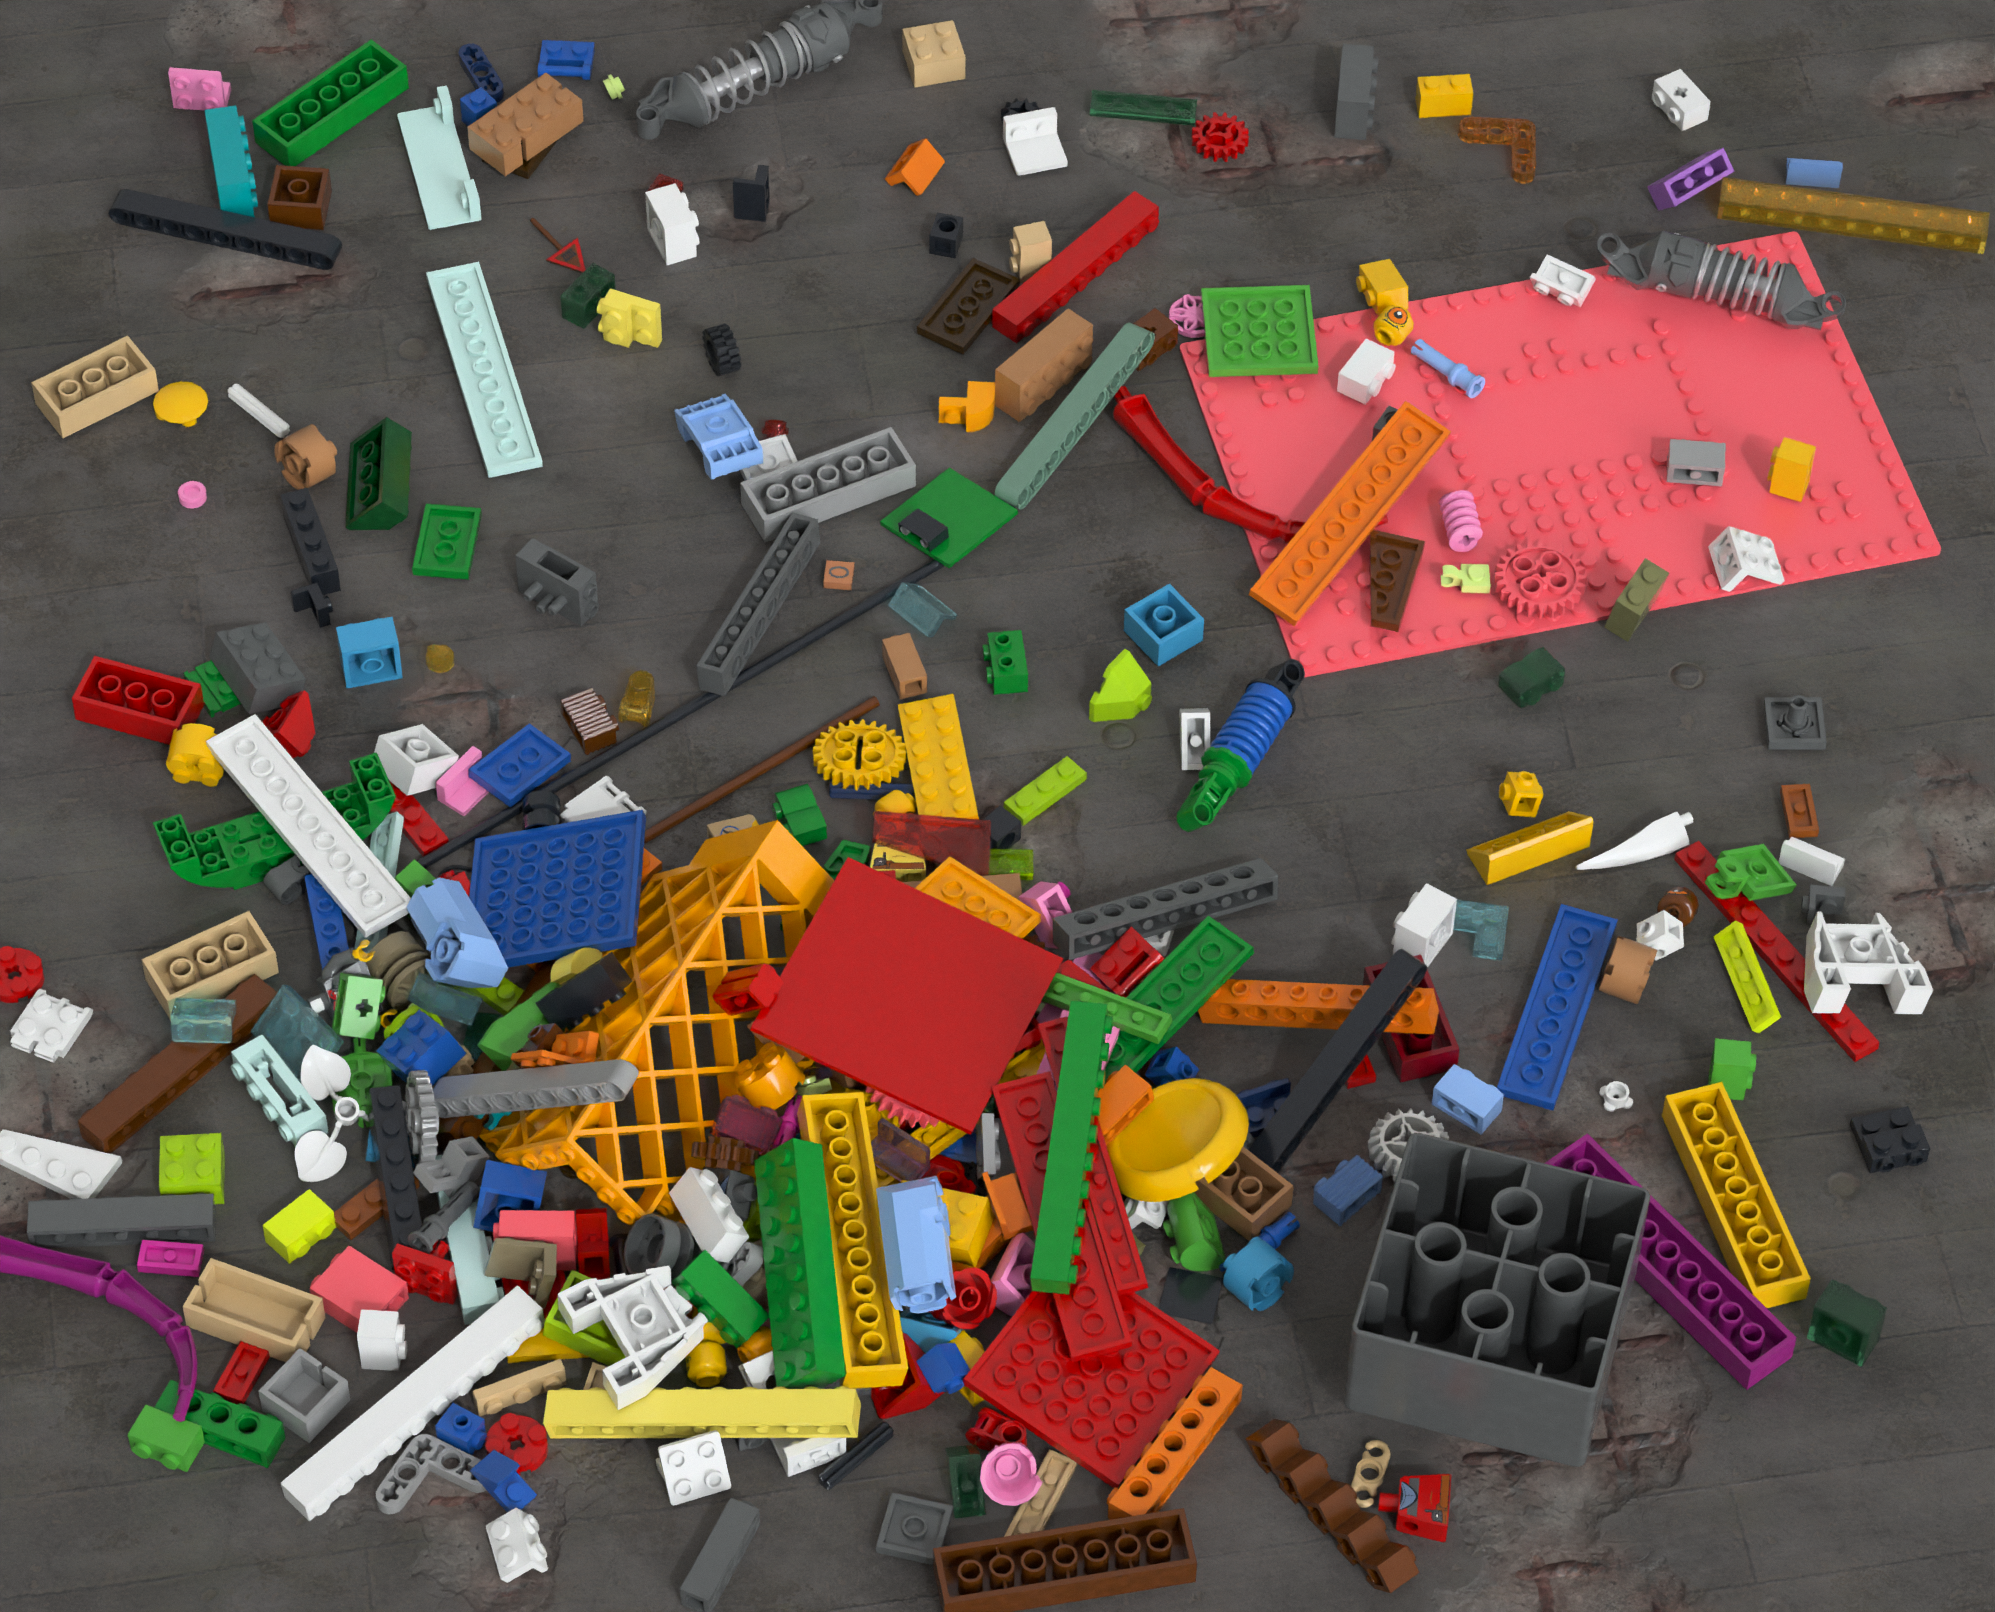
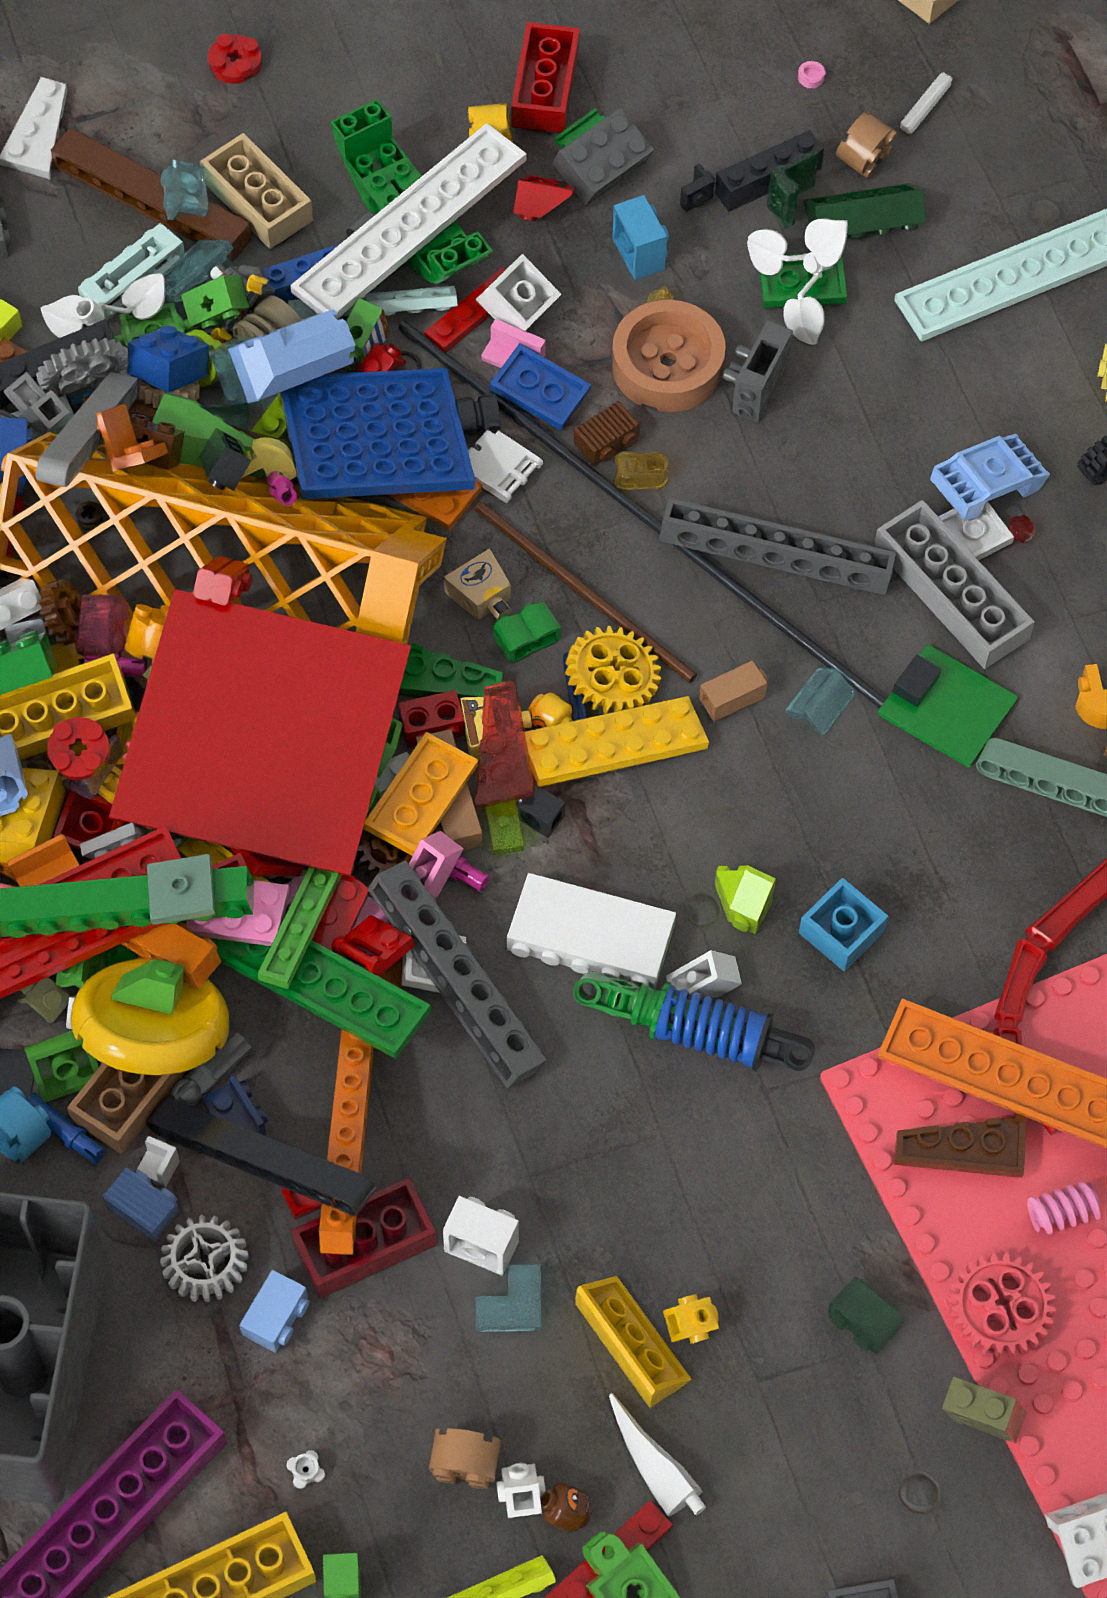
camera: 80 degrees right, 10 degrees up
(49, 1026) = (182, 93): white plate -> none
(180, 403) = (918, 43): yellow dish -> none
(192, 1165) = (36, 224): lime brick -> none
(349, 530) = (787, 183): none -> clear green bracket
(452, 481) = (826, 241): none -> white plant
(514, 633) = (677, 333): none -> nougat brick
(634, 949) = (279, 488): none -> dark pink pin
(839, 575) = (847, 618): nougat tile -> none
(901, 1127) = (67, 734): none -> red plate
(1006, 662) = (764, 786): green brick -> none
(1045, 790) = (610, 849): lime plate -> none
(1085, 1055) = (181, 889): none -> sand green plate
(1131, 813) = (590, 931): none -> white brick
(1154, 1122) = (152, 986): none -> bright green slope
(1169, 1066) = (259, 1013): blue brick -> none
(1307, 1170) = (159, 1161): none -> white panel
(1471, 577) = (989, 1232): yellowish green plate -> none
(1556, 1007) = (414, 1392): blue plate -> none

